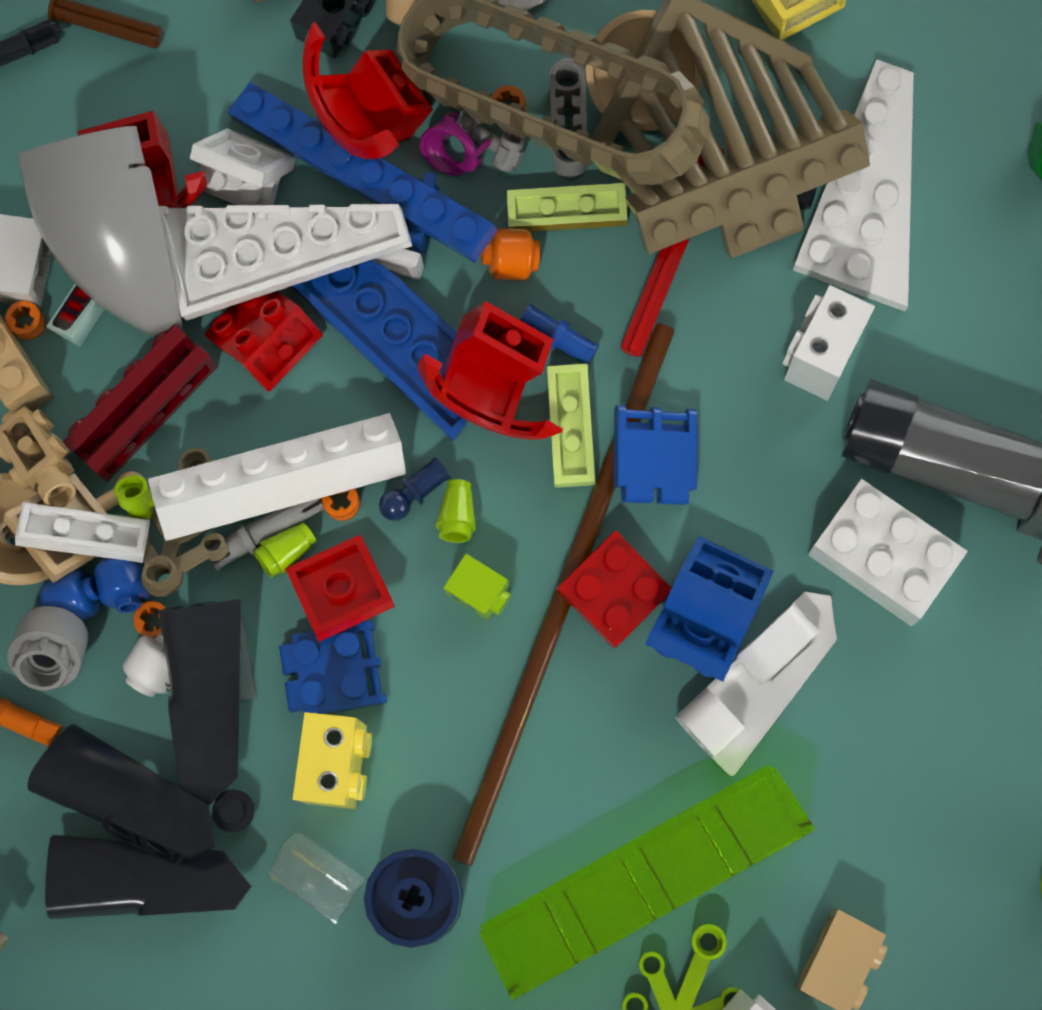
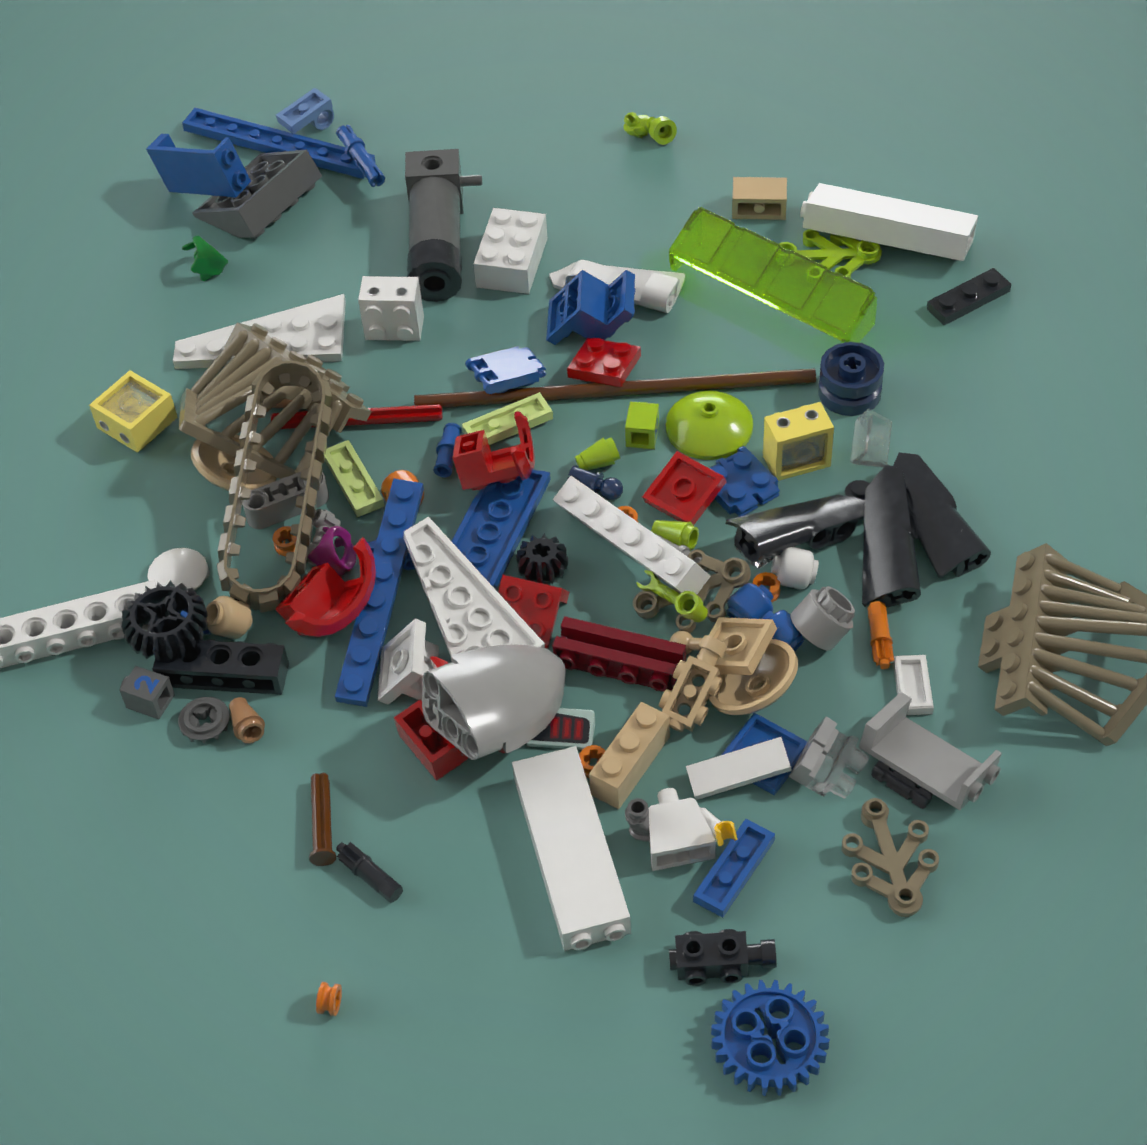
camera: 120 degrees left, 25 degrees down
(82, 532) = (733, 621): white tile -> none
(312, 367) = (542, 559): none -> black gear
(456, 710) = (709, 425): none -> lime dish

